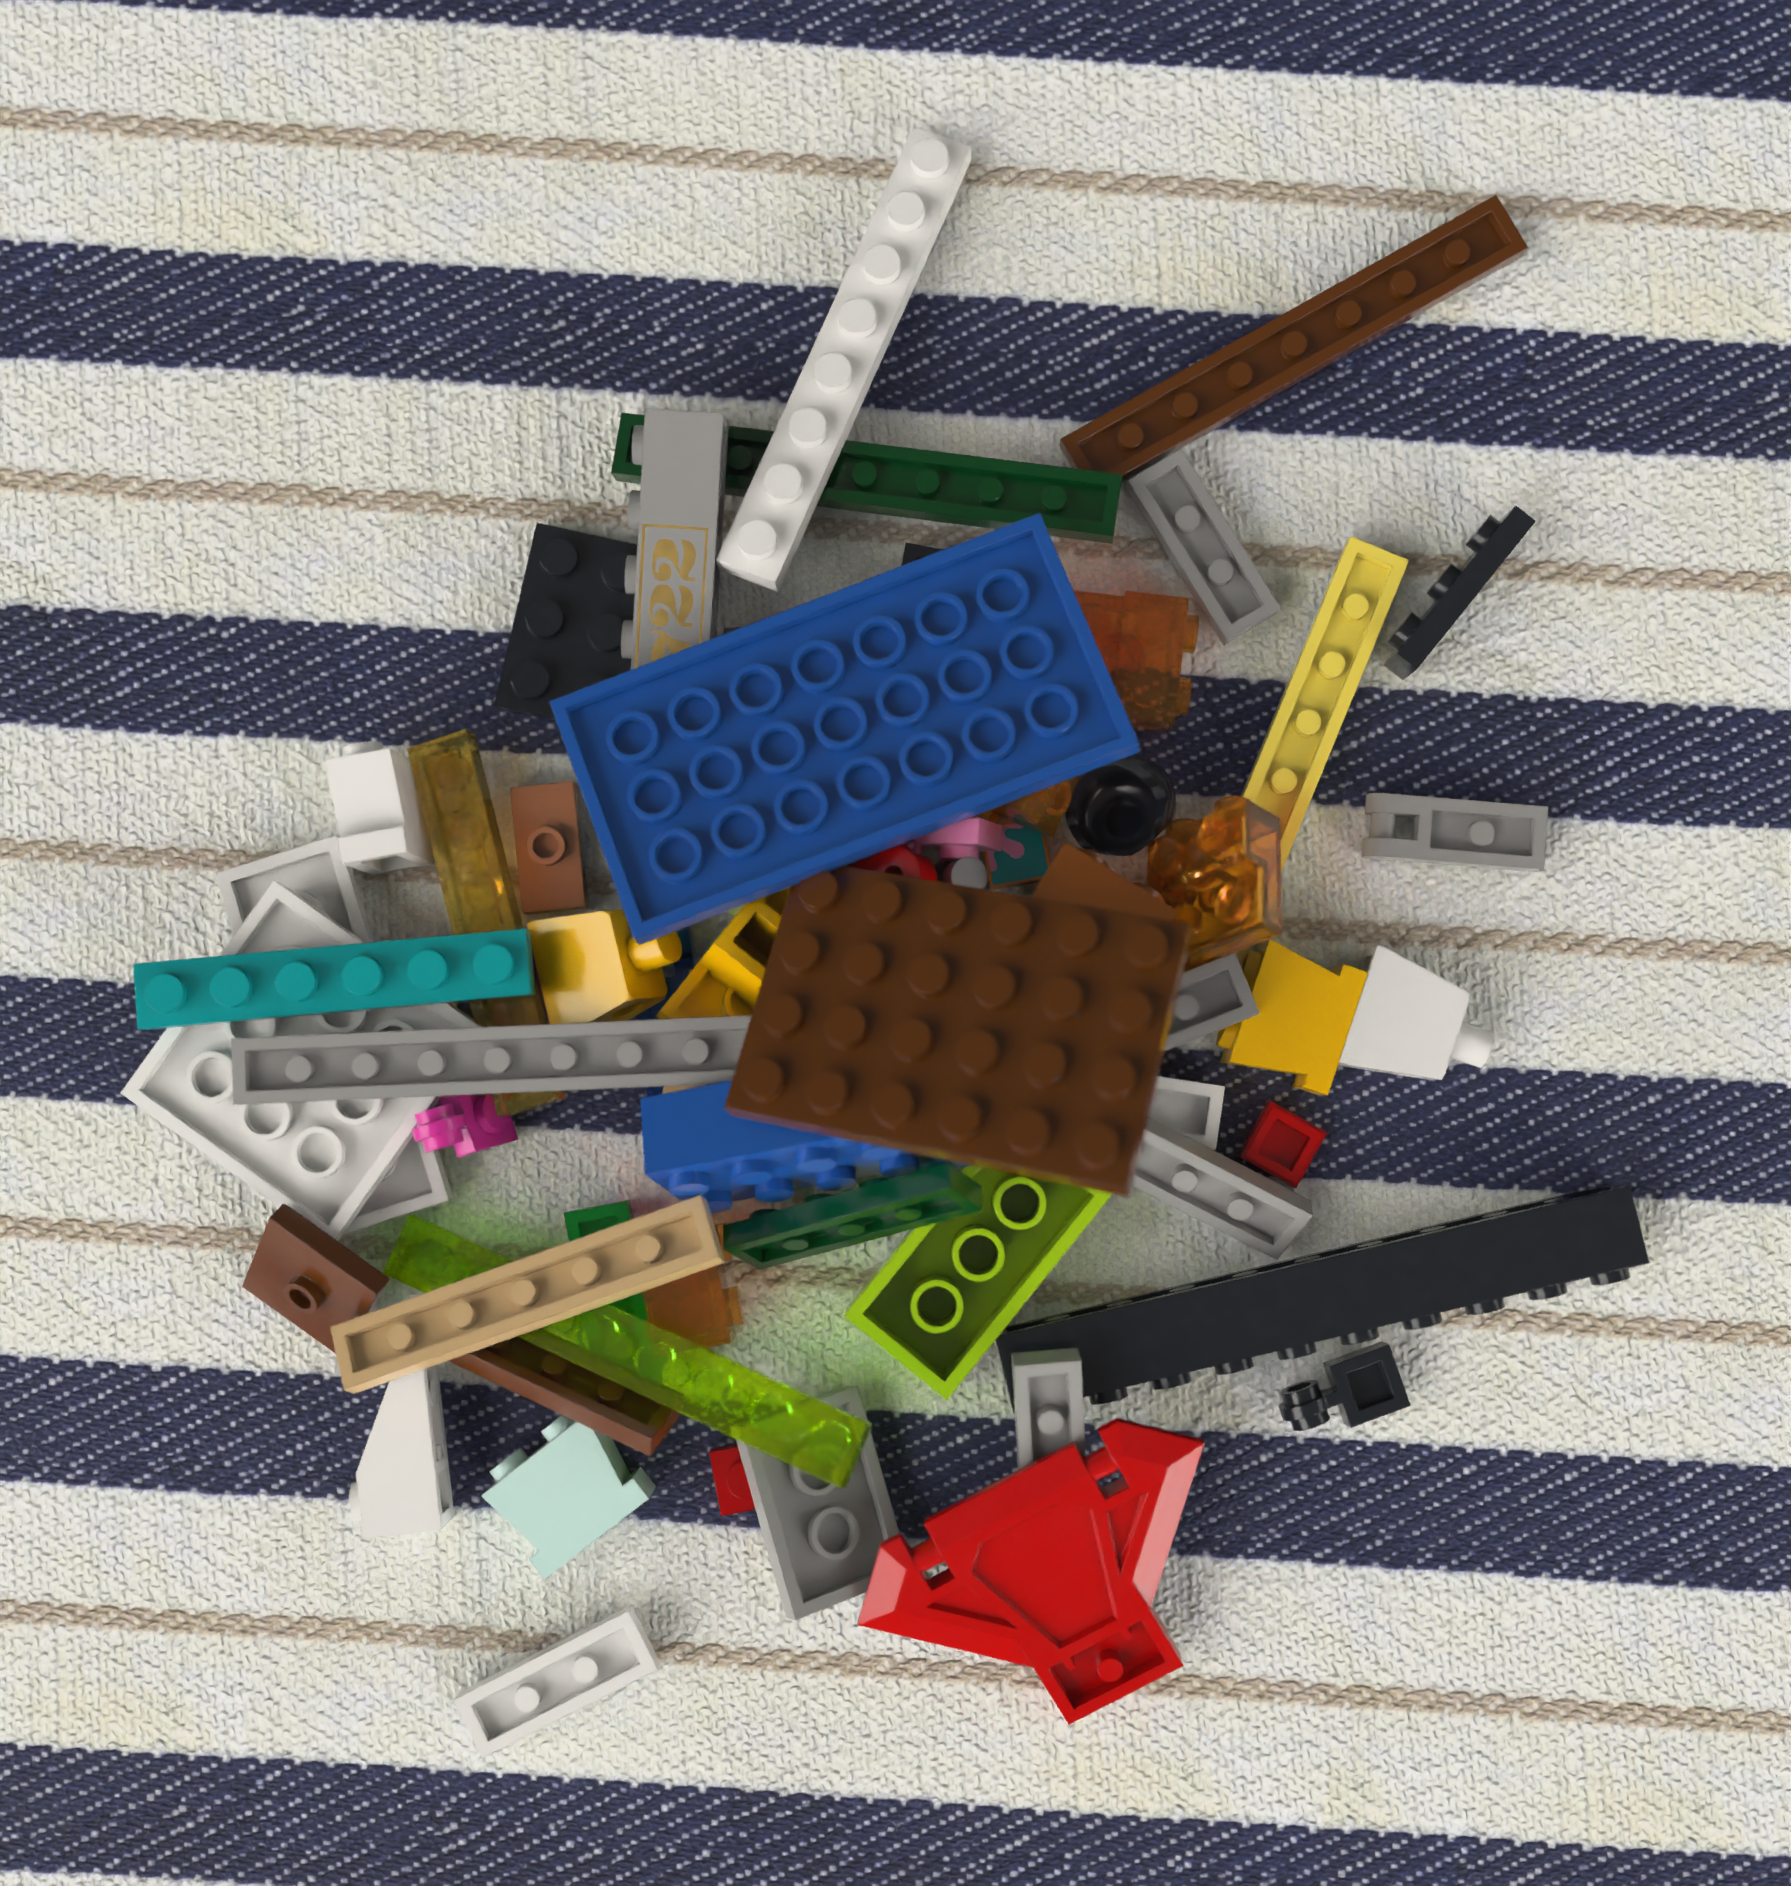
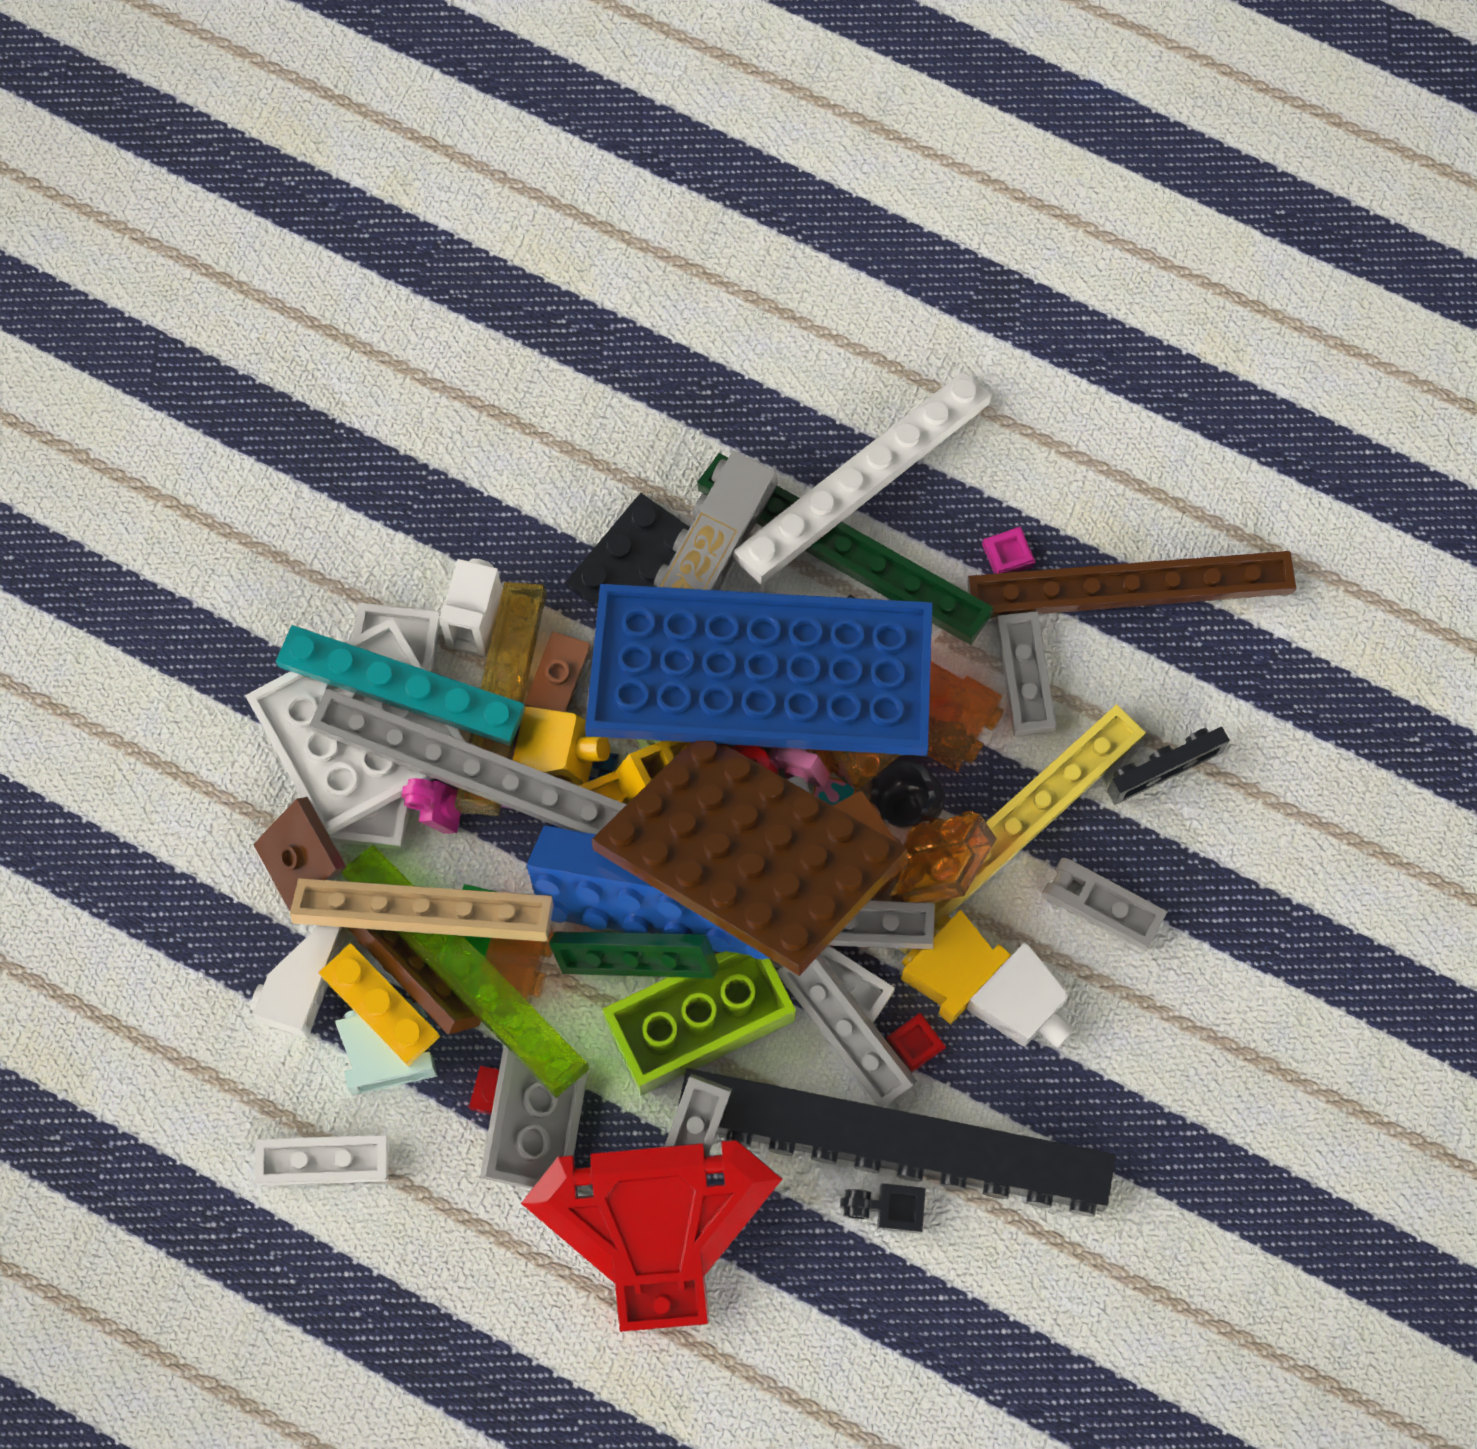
camera: 20 degrees right, 15 degrees down
(531, 1449) = (379, 1004): none -> yellow plate
(1098, 375) = (1008, 552): none -> dark pink tile

